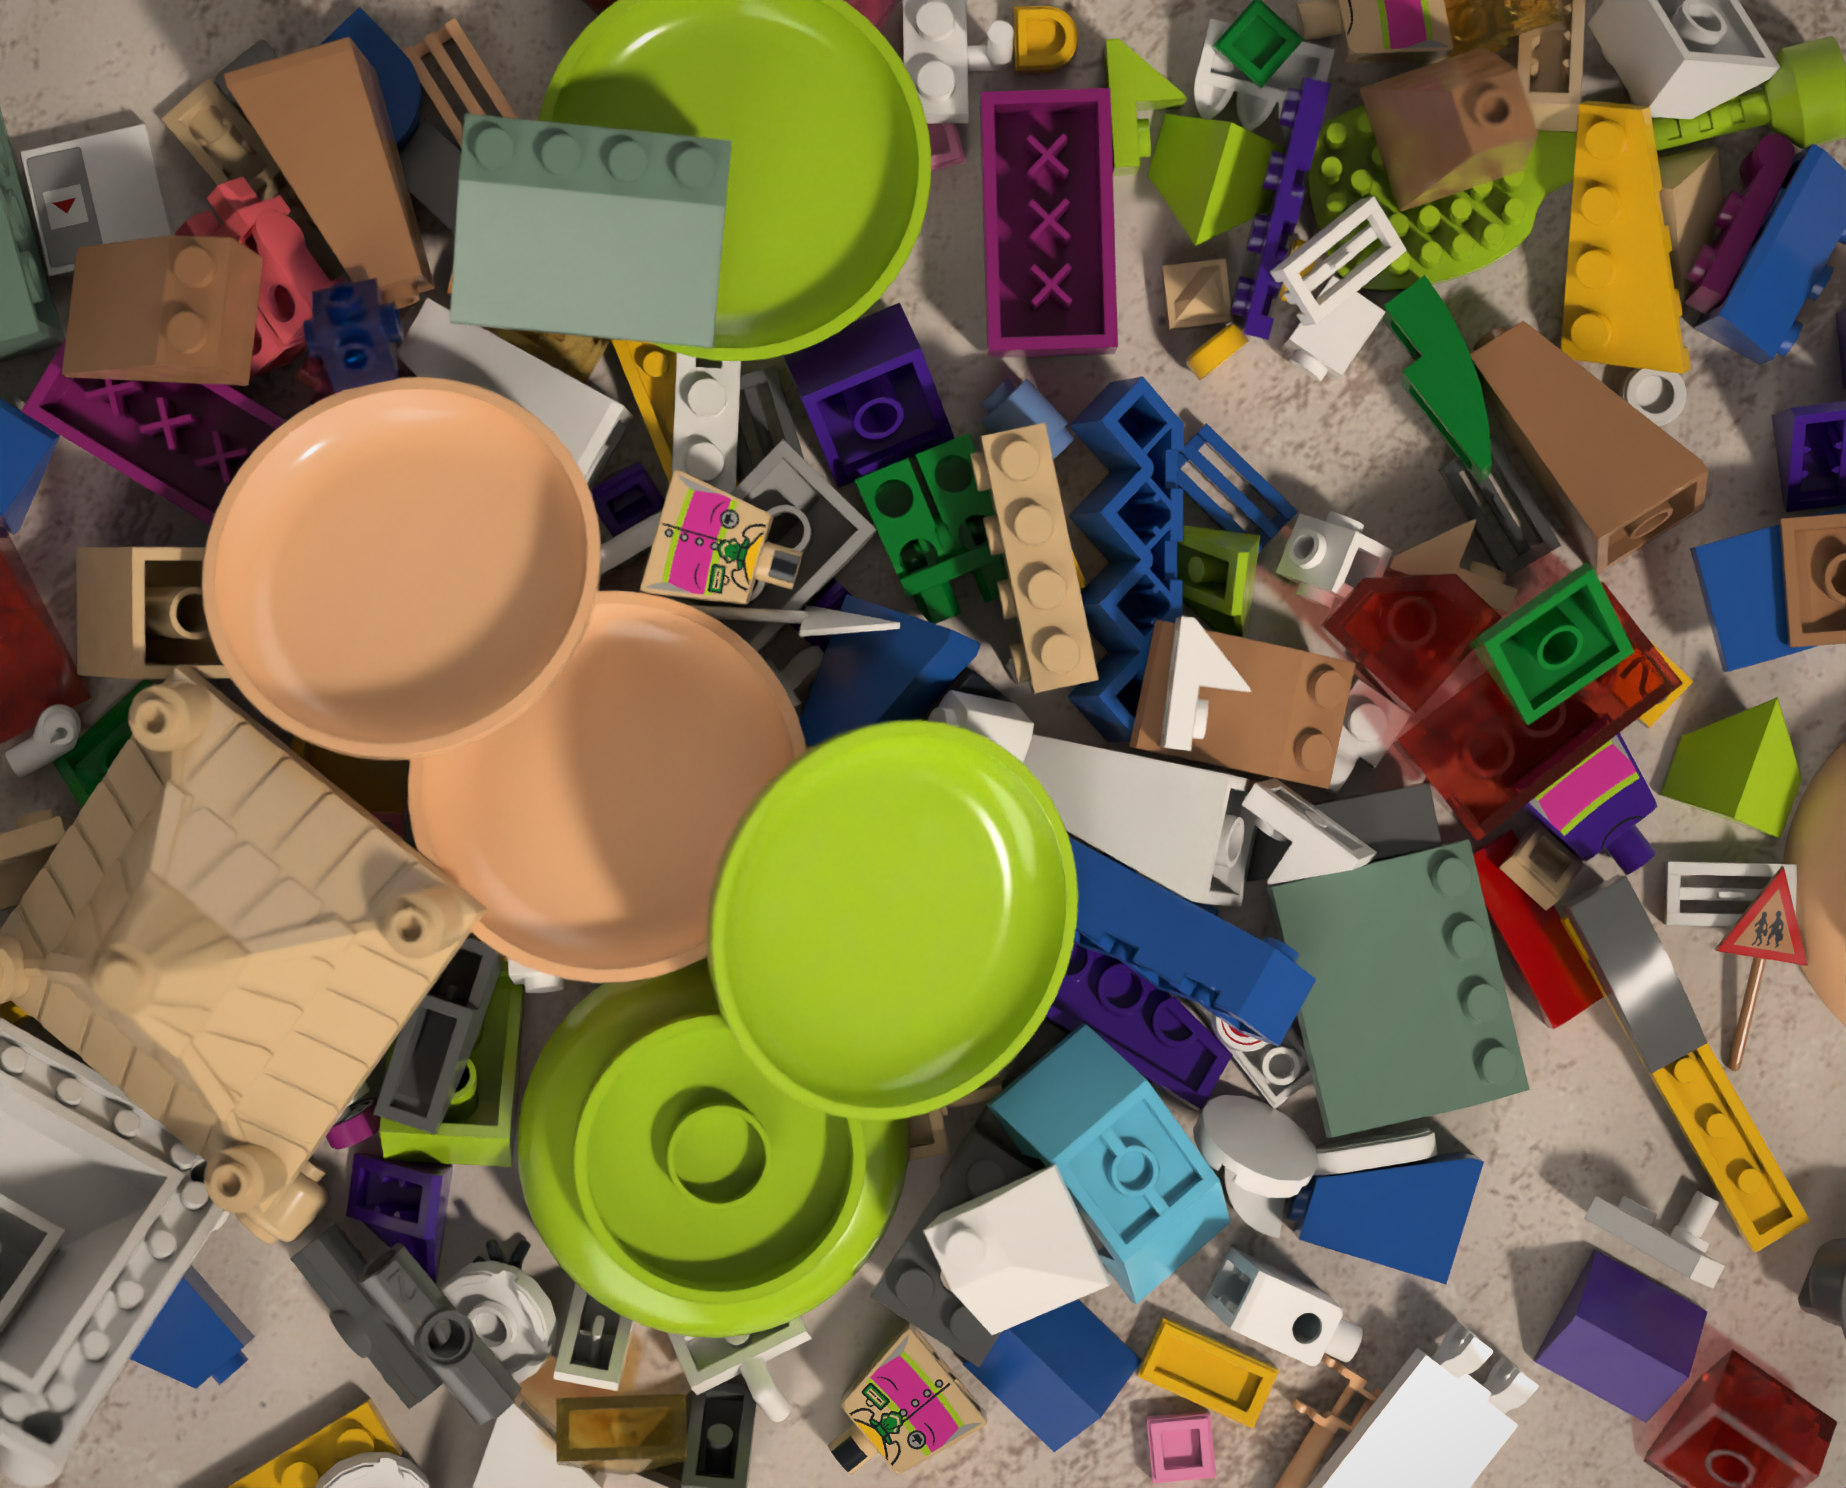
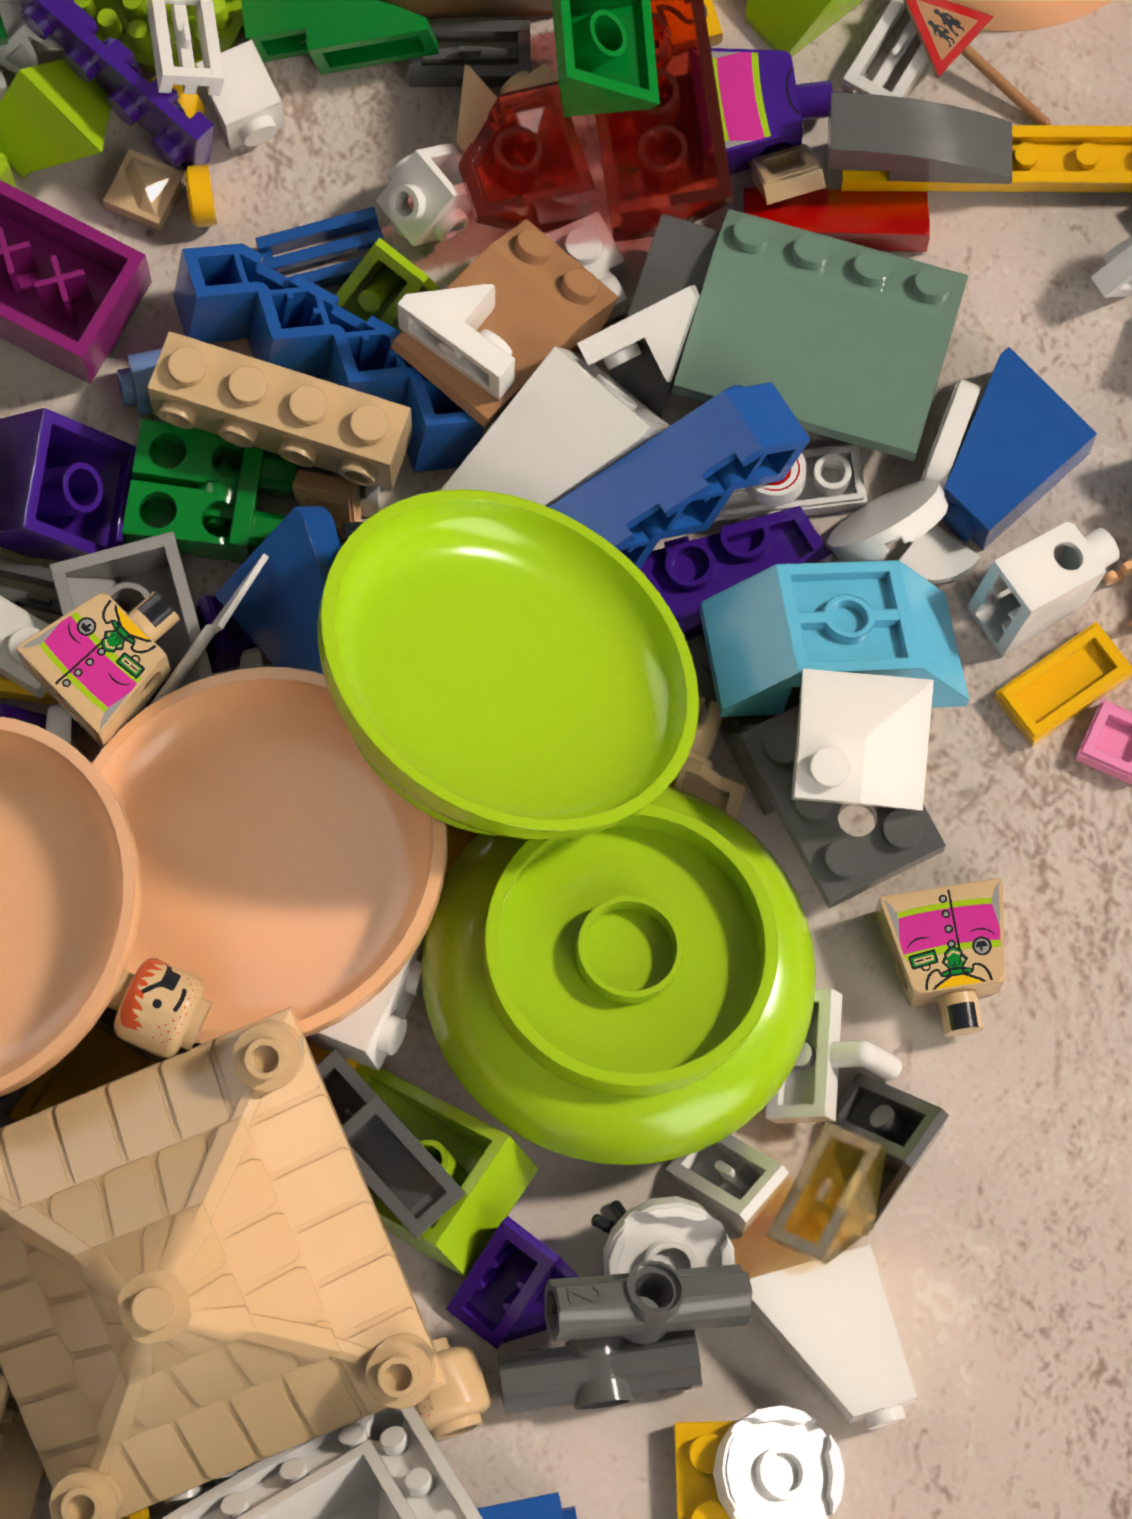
camera: 55 degrees left, 15 degrees down
(357, 1126) = (421, 1274): magenta tile -> none
(417, 802) = (160, 1008): none -> tan head
(999, 634) = (333, 492): none -> light nougat tile
(1057, 1371) = (990, 809): blue slope -> none

